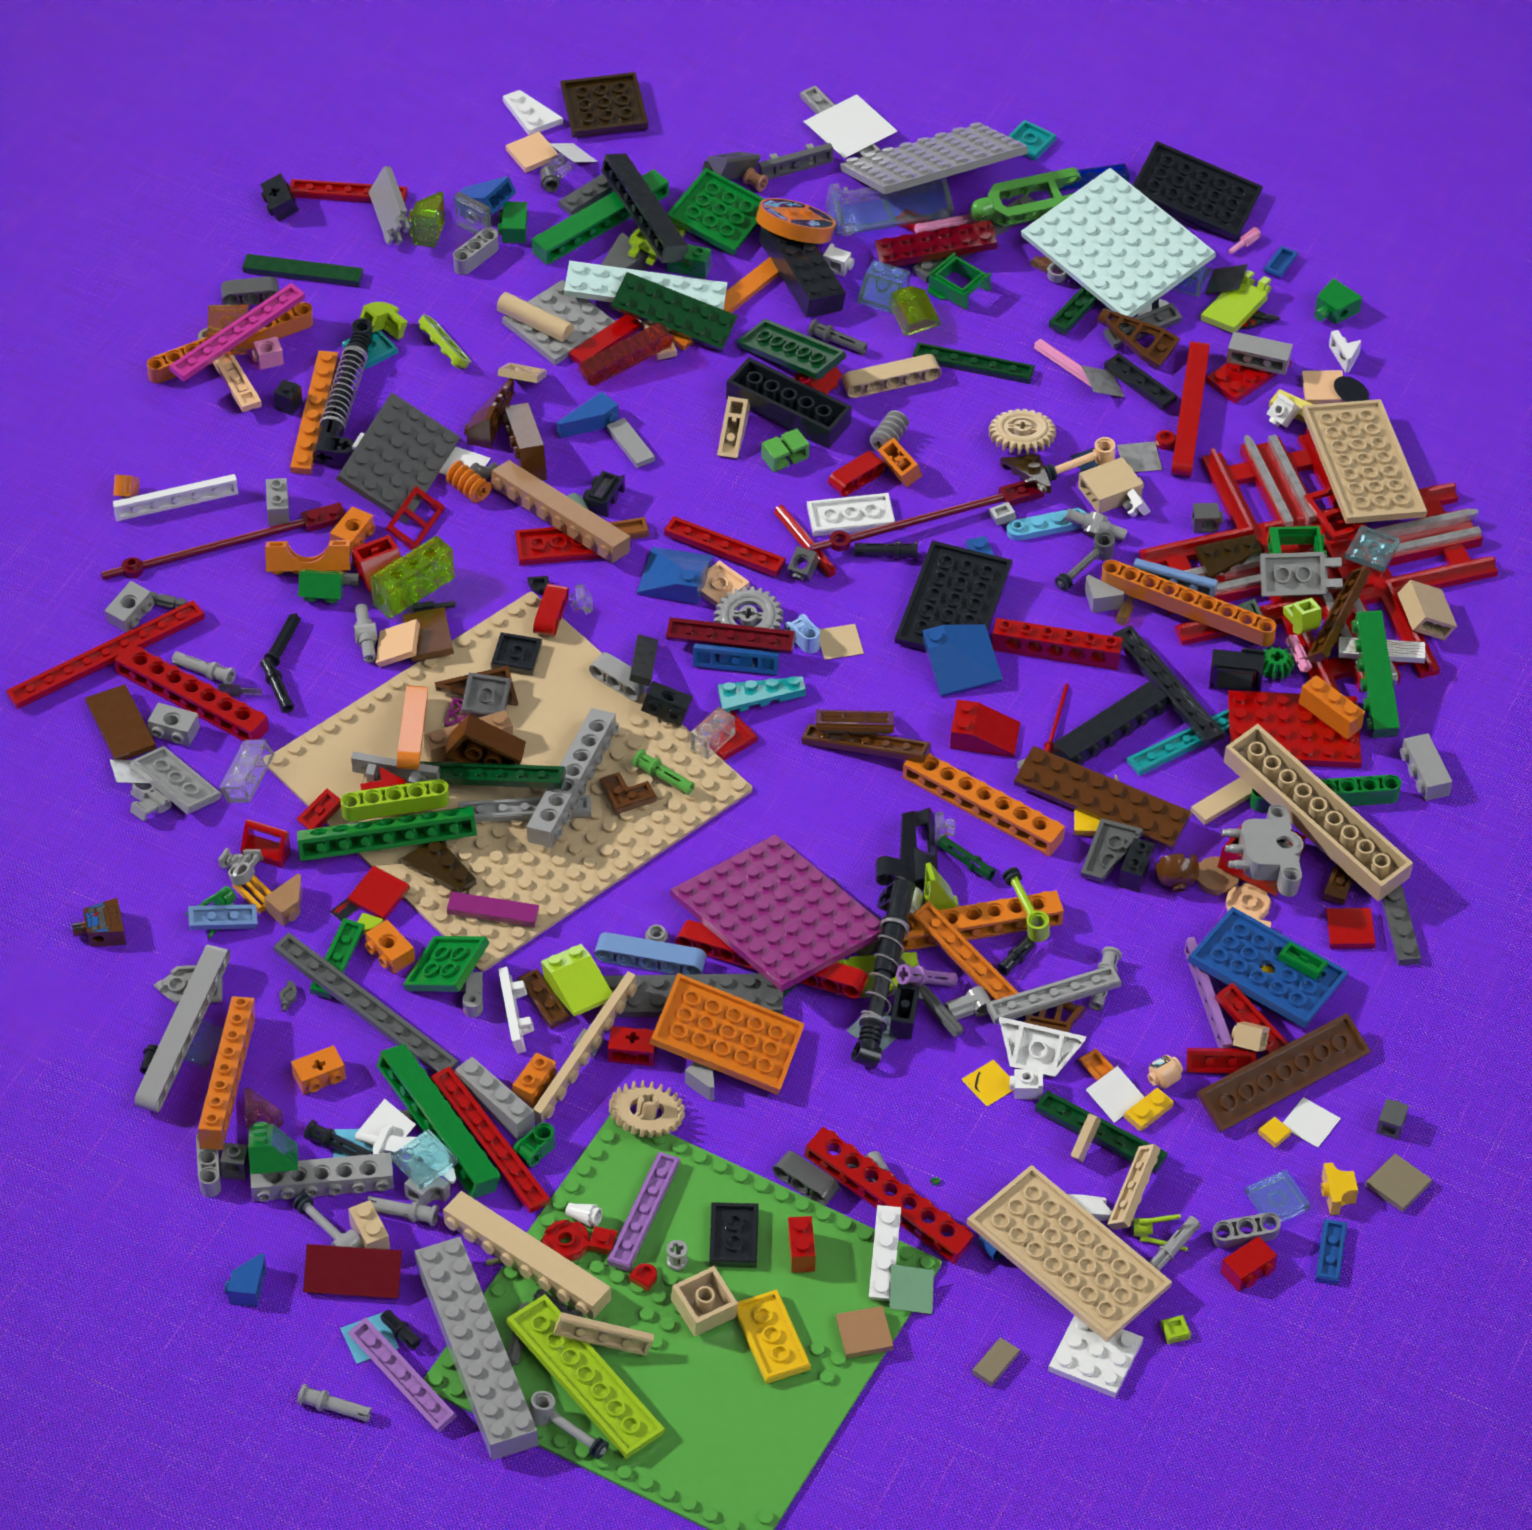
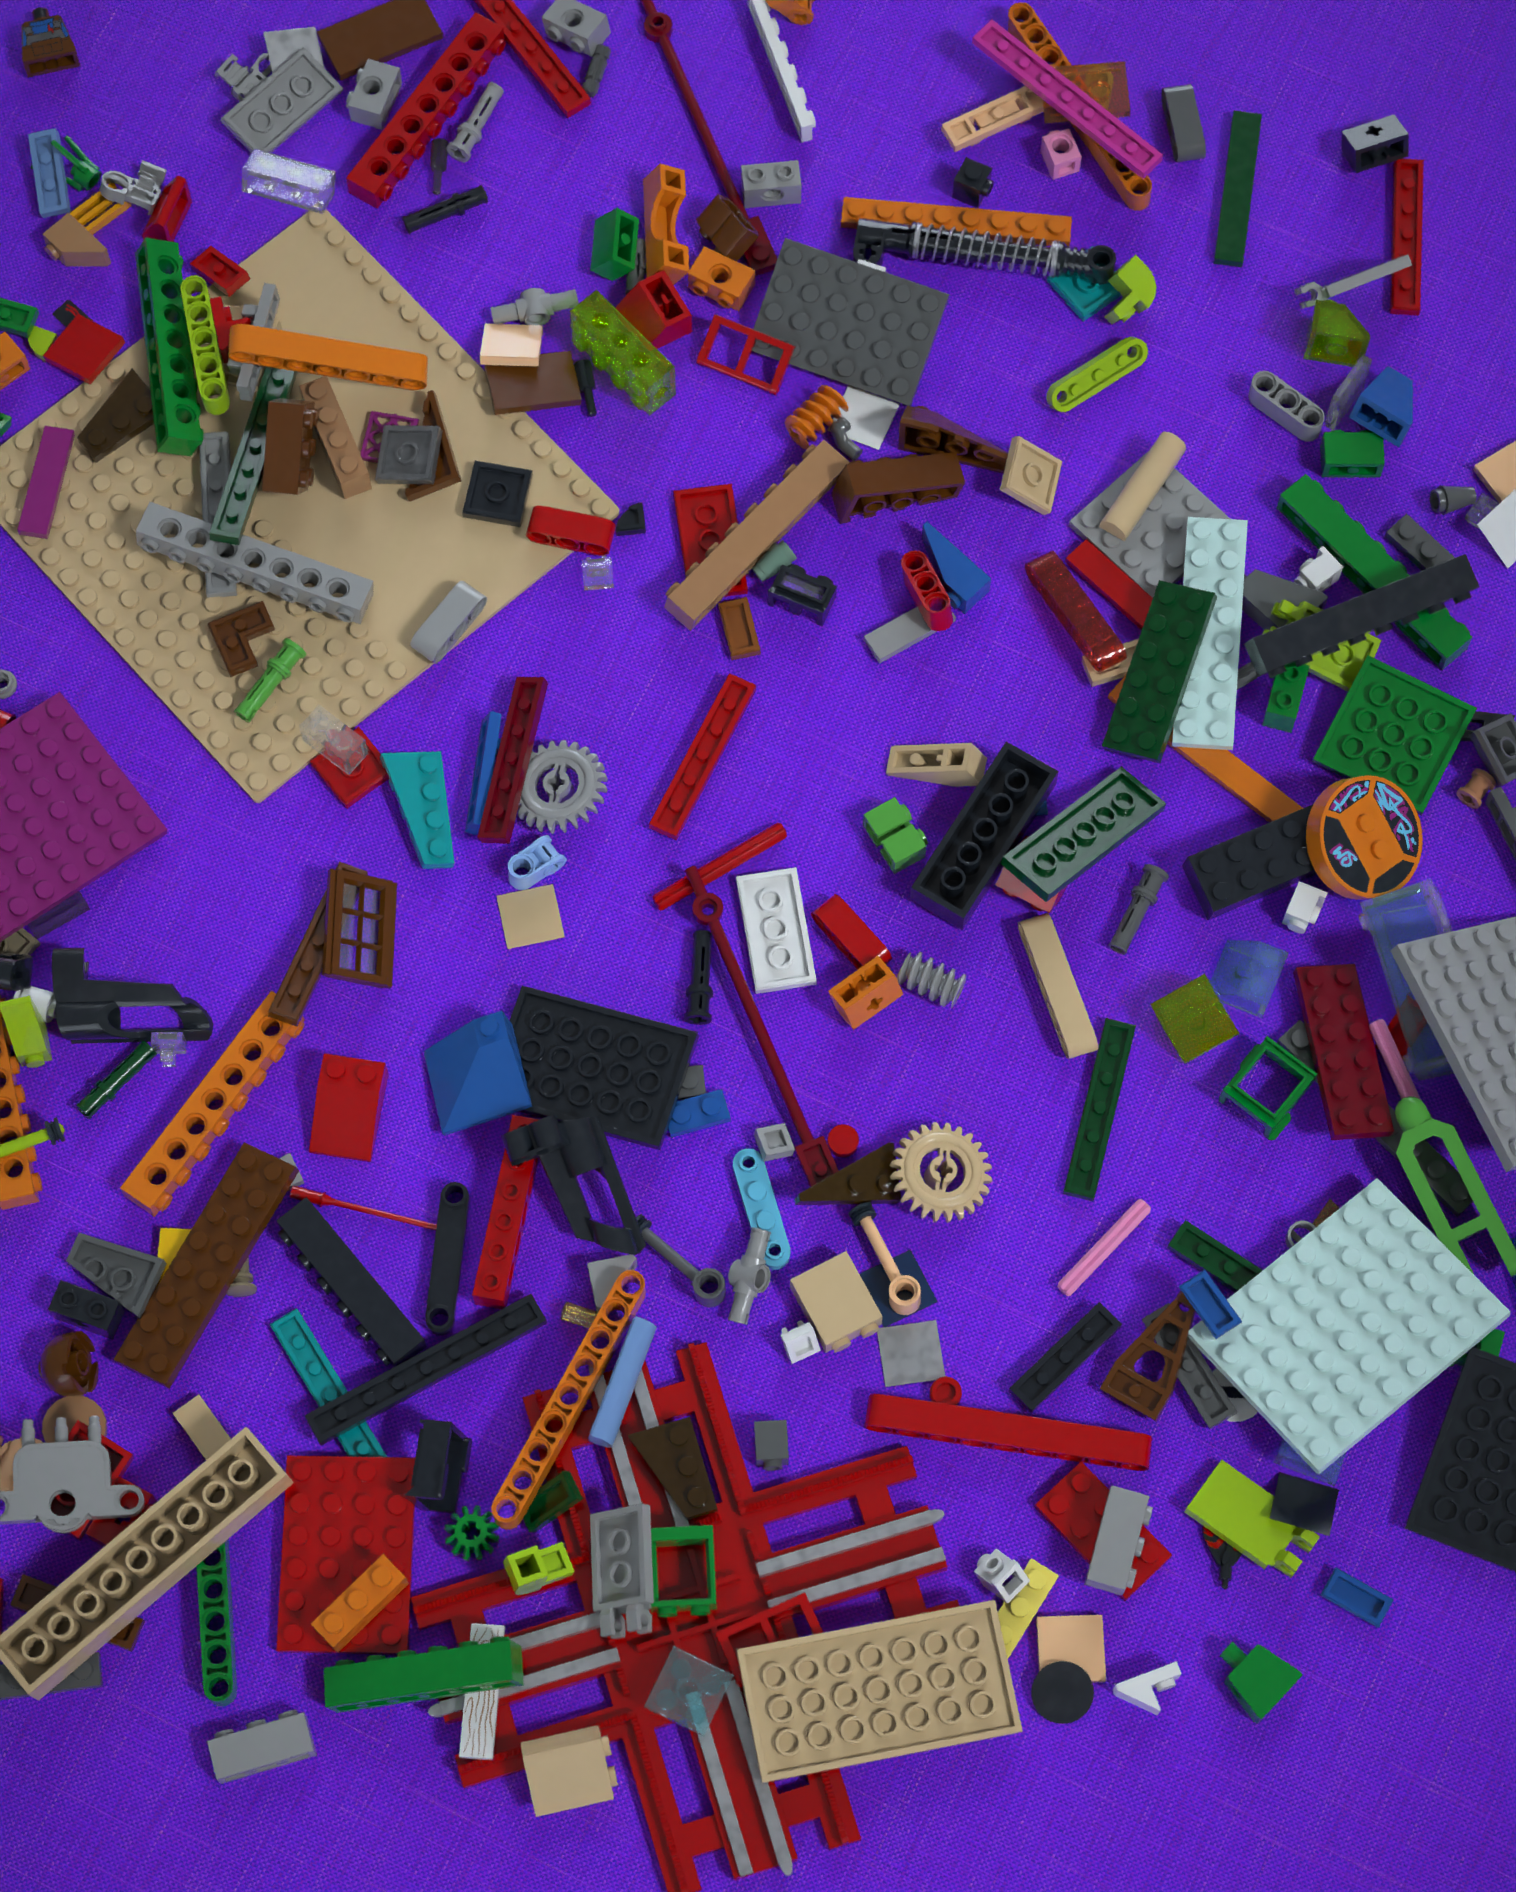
camera: 90 degrees right, 20 degrees up
(283, 638) = (527, 211): black axle -> none
(313, 523) = (726, 228): none -> reddish brown brick
(599, 240) = (1321, 572): none -> white brick
(608, 424) = (927, 590): none -> red beam
(643, 660) = (469, 648): pearl dark grey tile -> none
(666, 703) = (404, 668): black brick -> none
(675, 575) = (651, 694): blue slope -> none
(721, 581) = (634, 753): light nougat tile -> none
(803, 555) = (662, 859): dark grey brick -> none
(997, 481) = (843, 1140): none -> red tile
(1019, 598) = (570, 1150): none -> black panel
(1088, 678) = (447, 1258): none -> black piece
(1102, 381) = (1059, 1298): flat silver sticker -> none
(1111, 298) = (1210, 1304): none -> blue tile
(1246, 239) = (1403, 1543): bright pink axle -> none
(1298, 653) = (480, 1566): bright pink axle -> none
(1338, 614) = (547, 1627): reddish brown plate -> none

